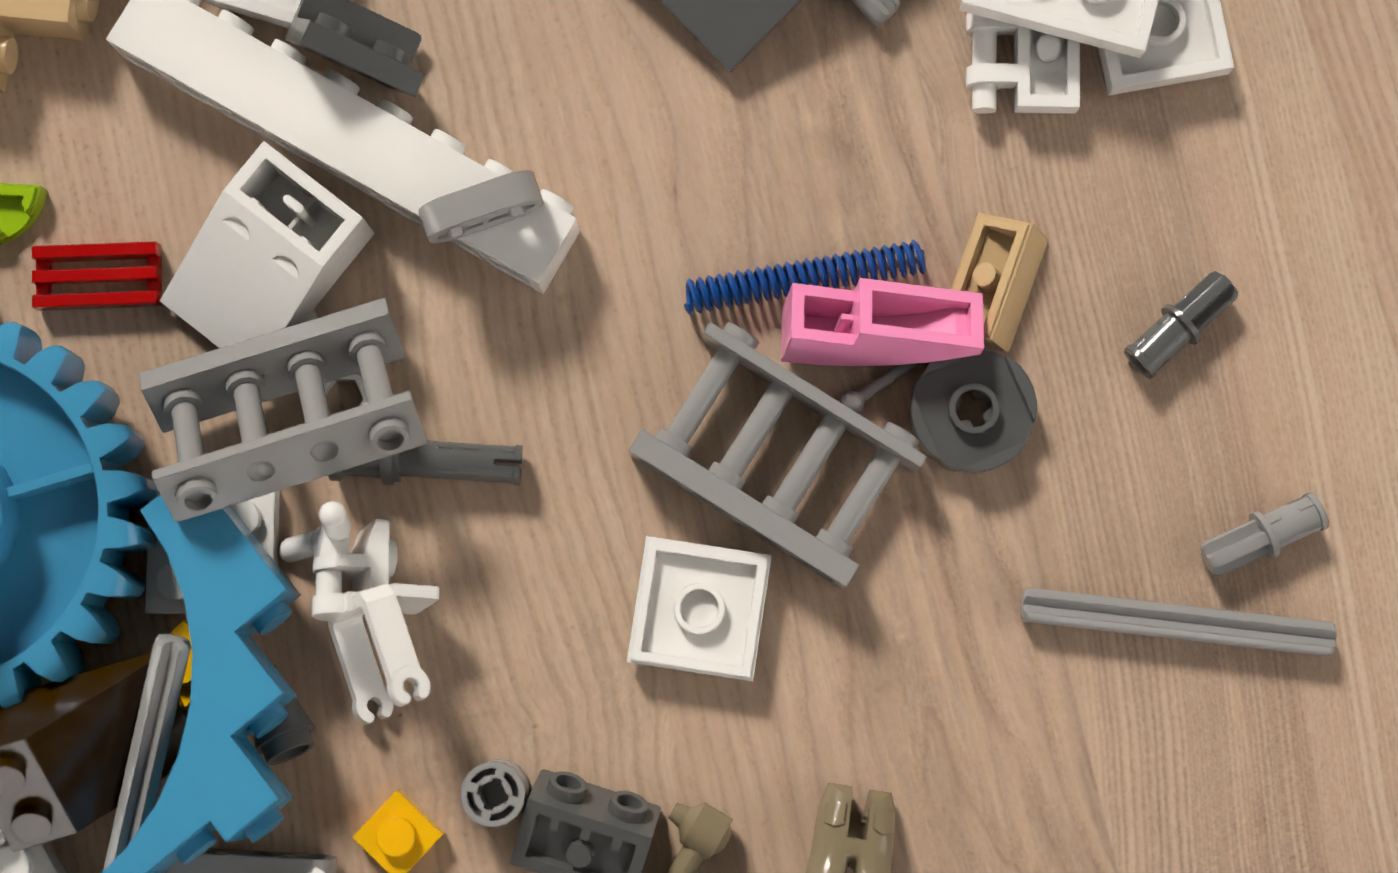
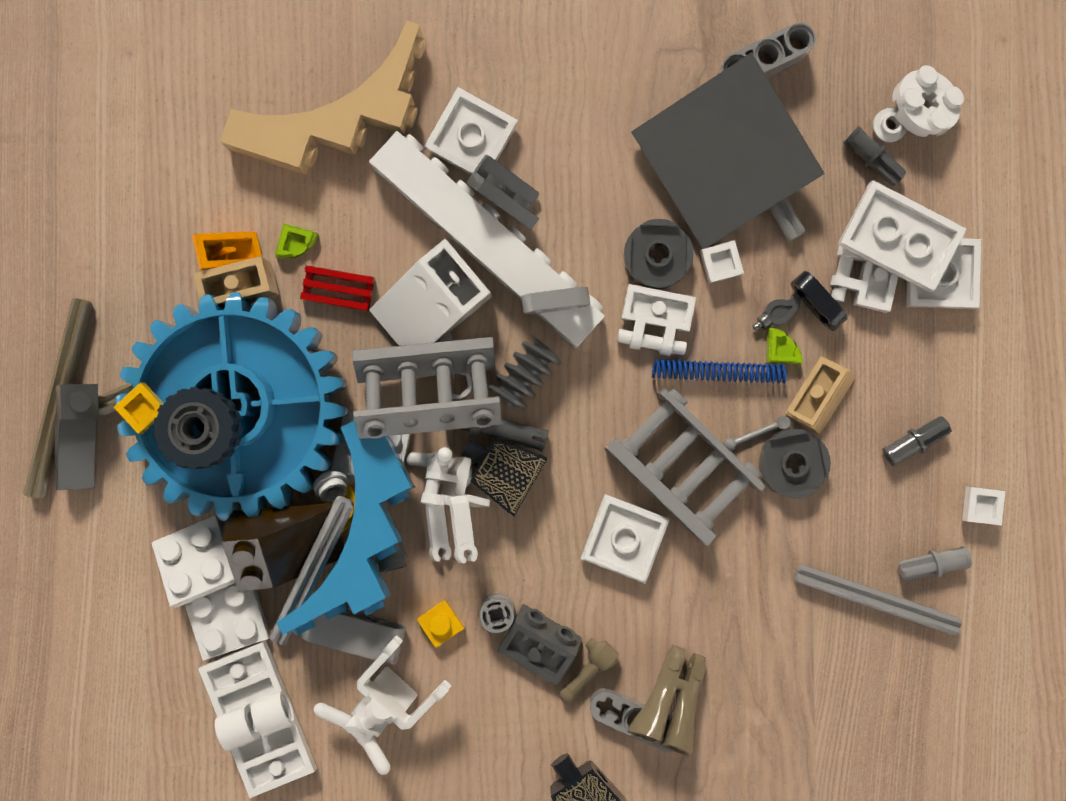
camera: 10 degrees right, 5 degrees up
(145, 620) = (330, 486): none -> white plate
(457, 352) = (525, 373): none -> dark grey piece
(458, 533) = (504, 472): none -> black torso
(672, 190) = (658, 309): none -> white plate
(673, 68) = (672, 240): none -> dark grey plate
(766, 86) = (721, 262): none -> white plate
(880, 324) = (755, 407): bright pink slope -> none
(886, 153) = (778, 312): none -> dark grey piece
(907, 214) = (781, 348): none -> lime tile
(951, 116) = (819, 301): none -> black beam
(1326, 412) = (983, 505): none -> white plate

